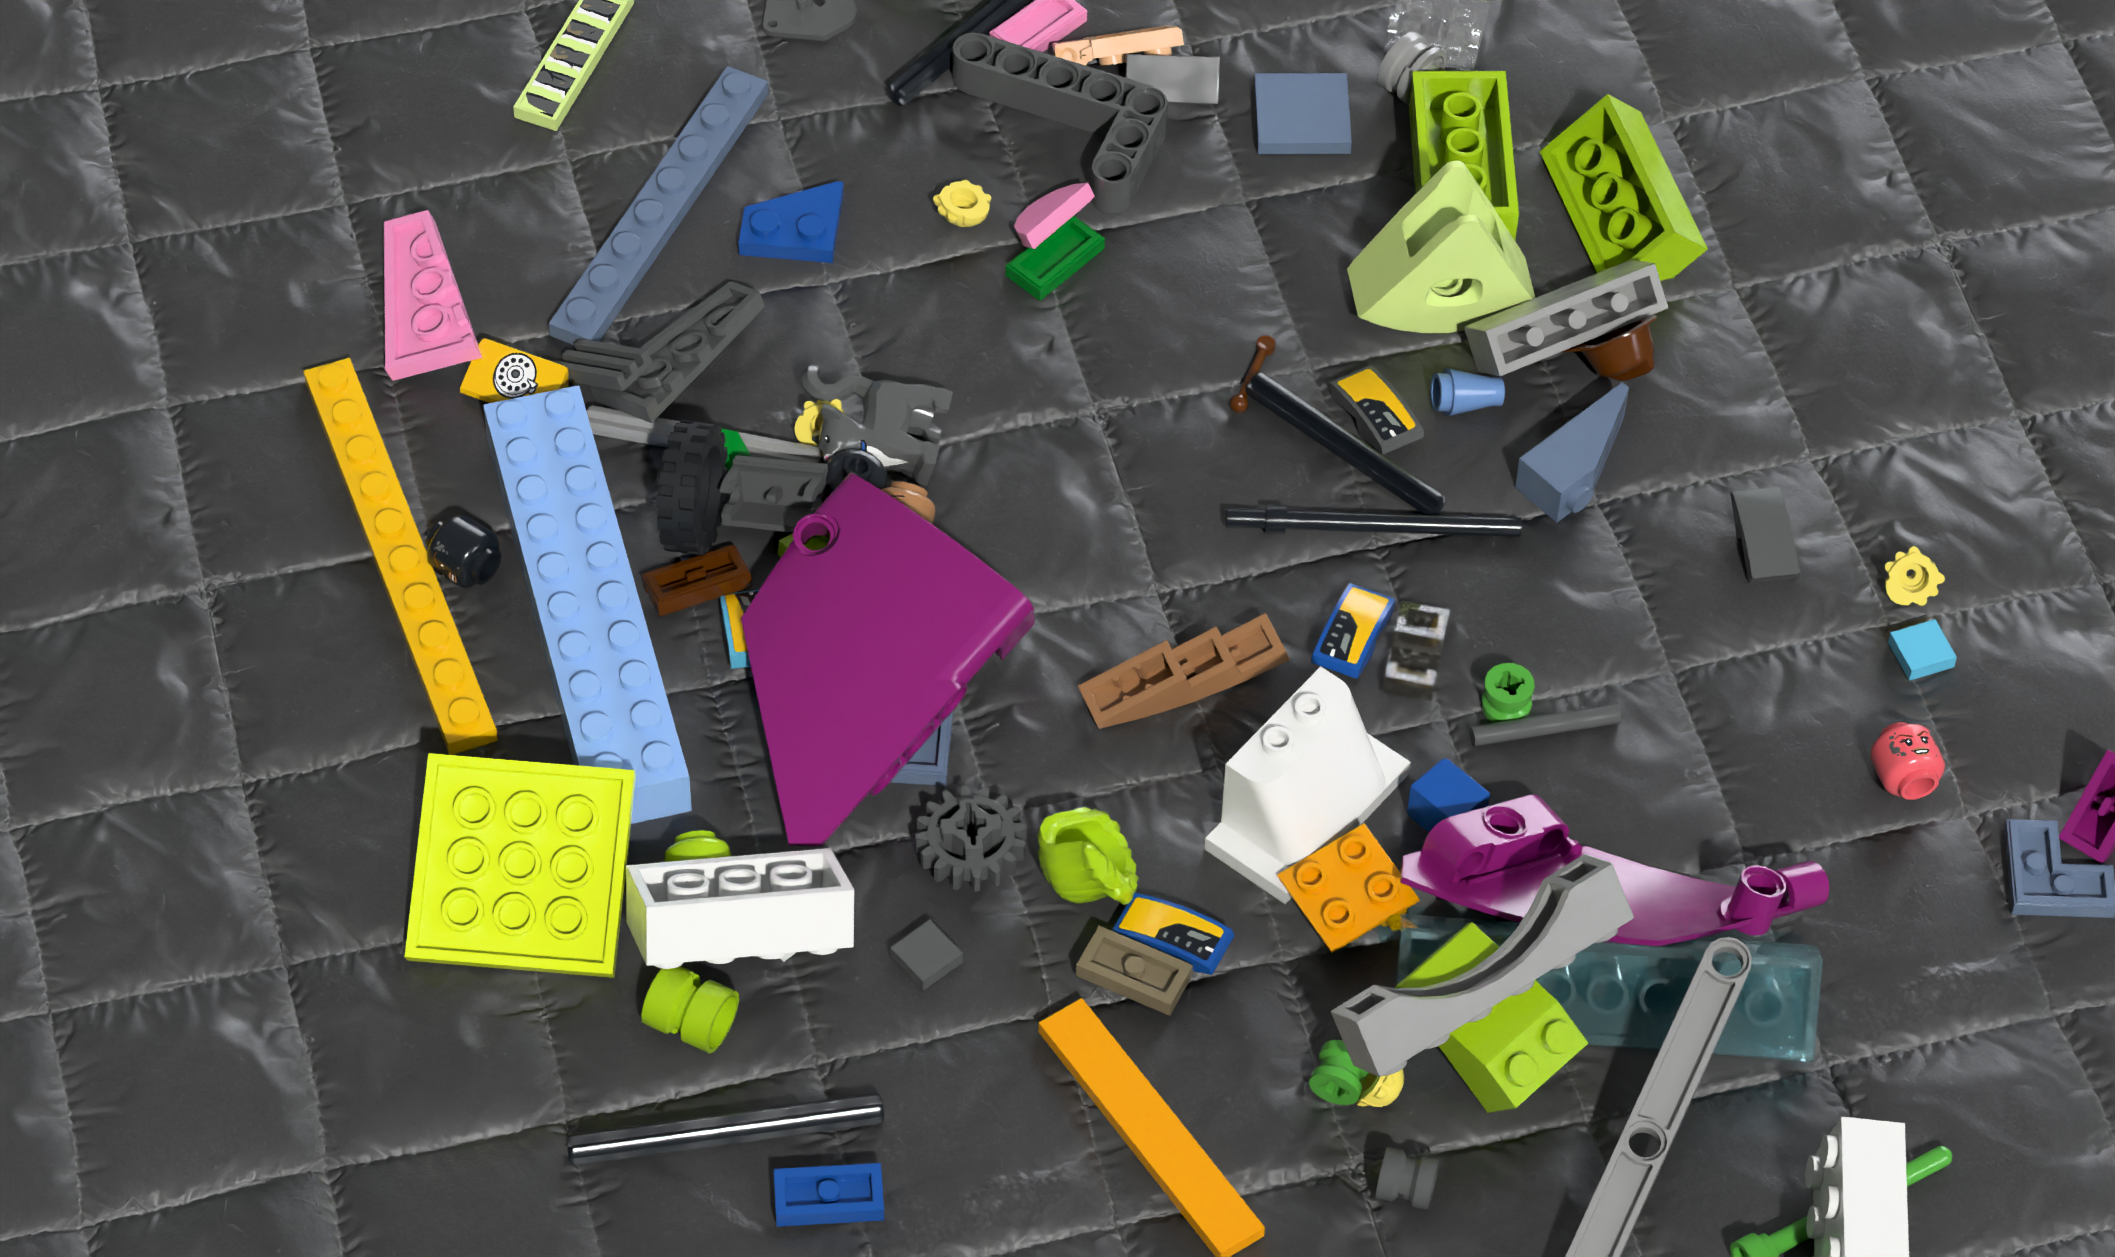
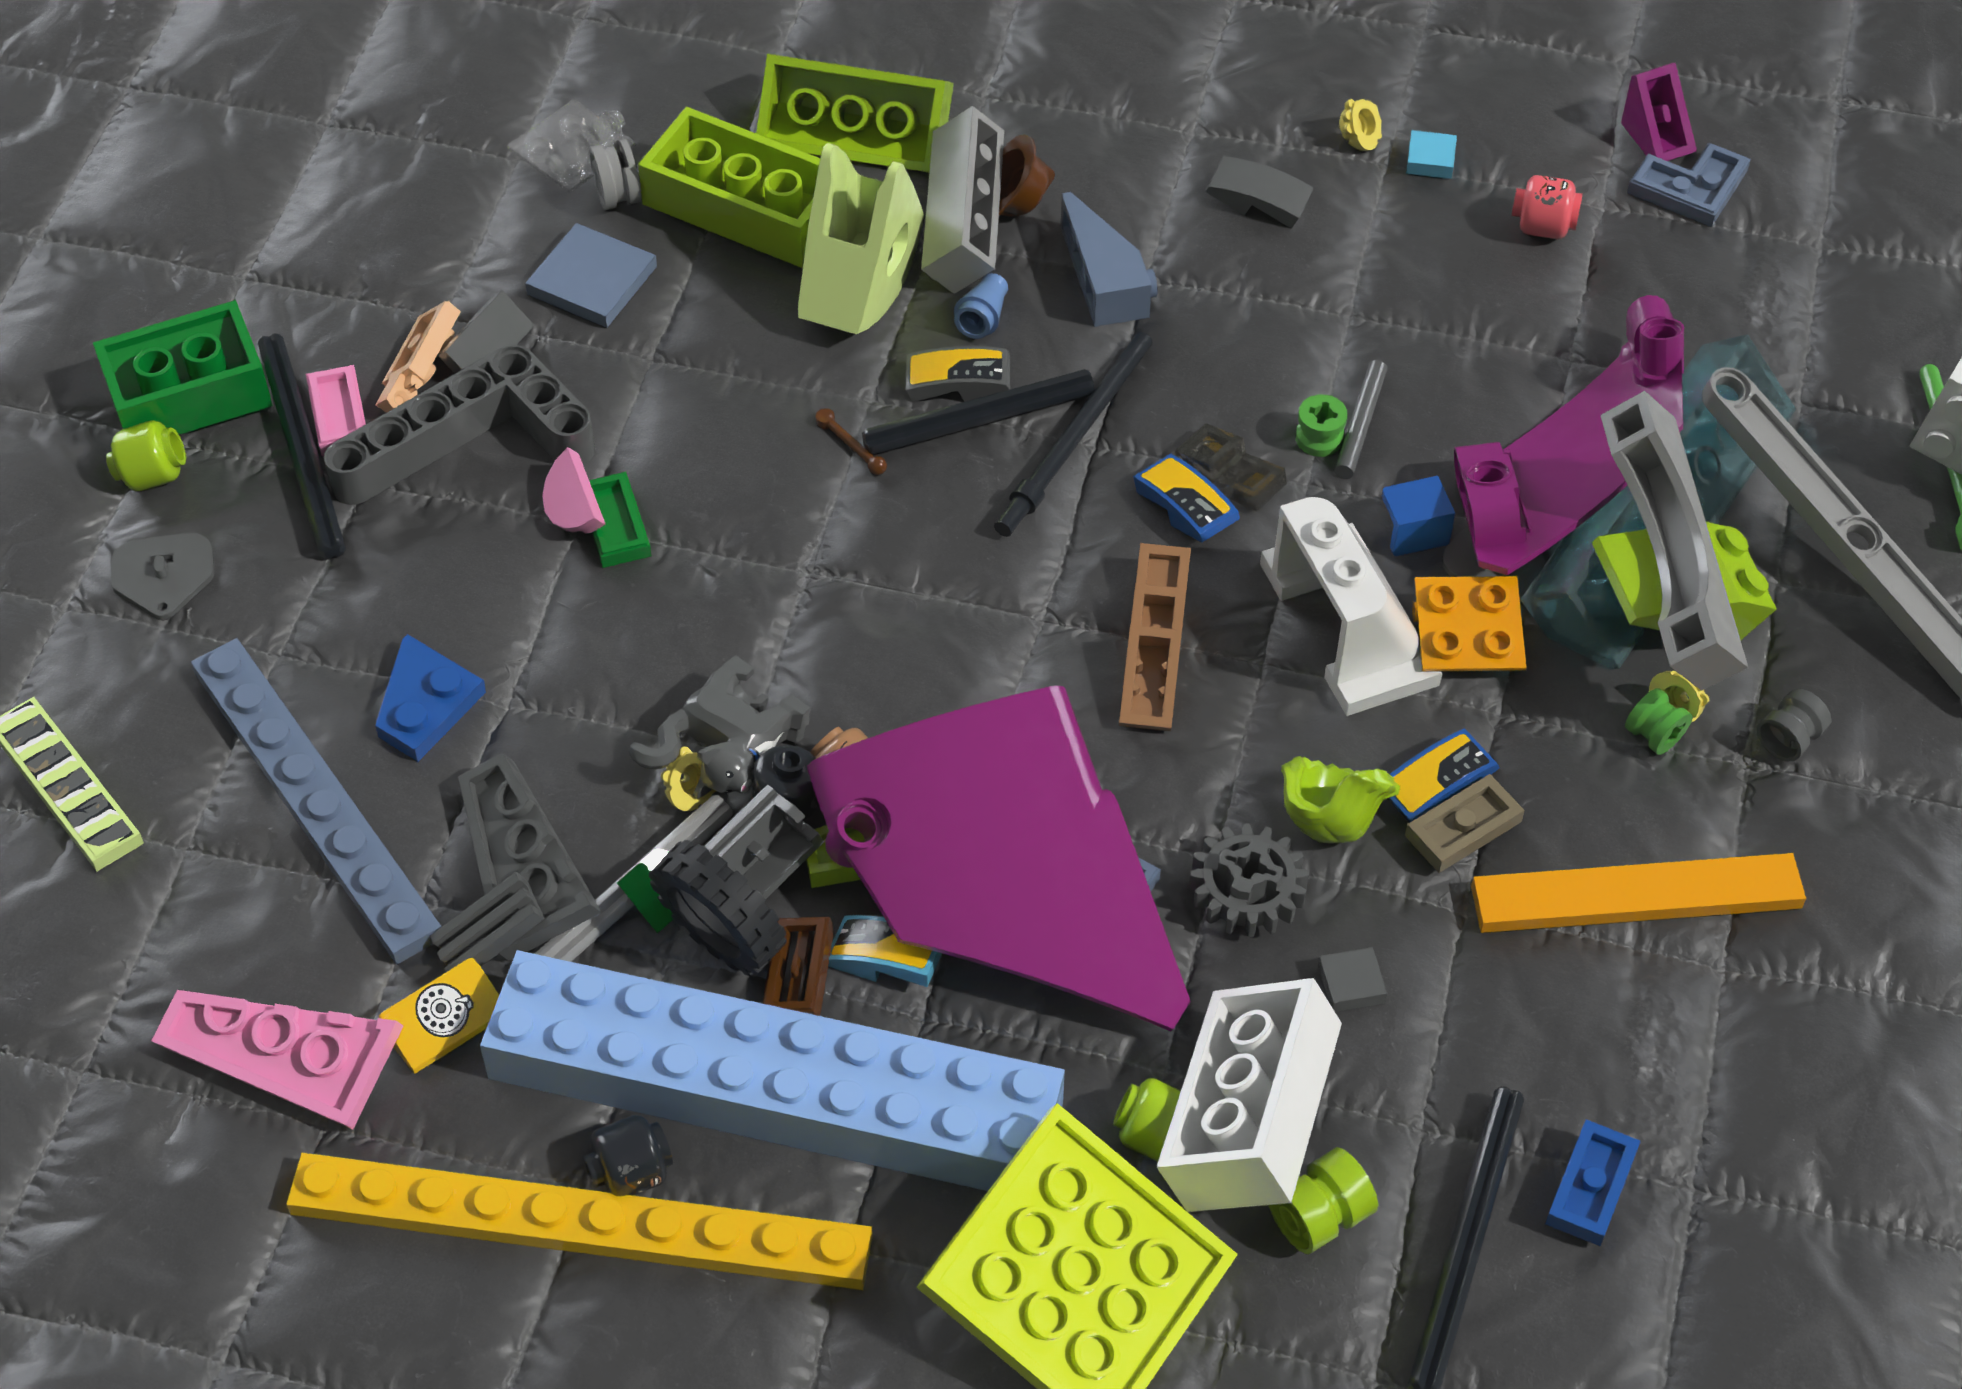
camera: 60 degrees left, 0 degrees up
(963, 203) = (508, 554): light yellow animal -> none

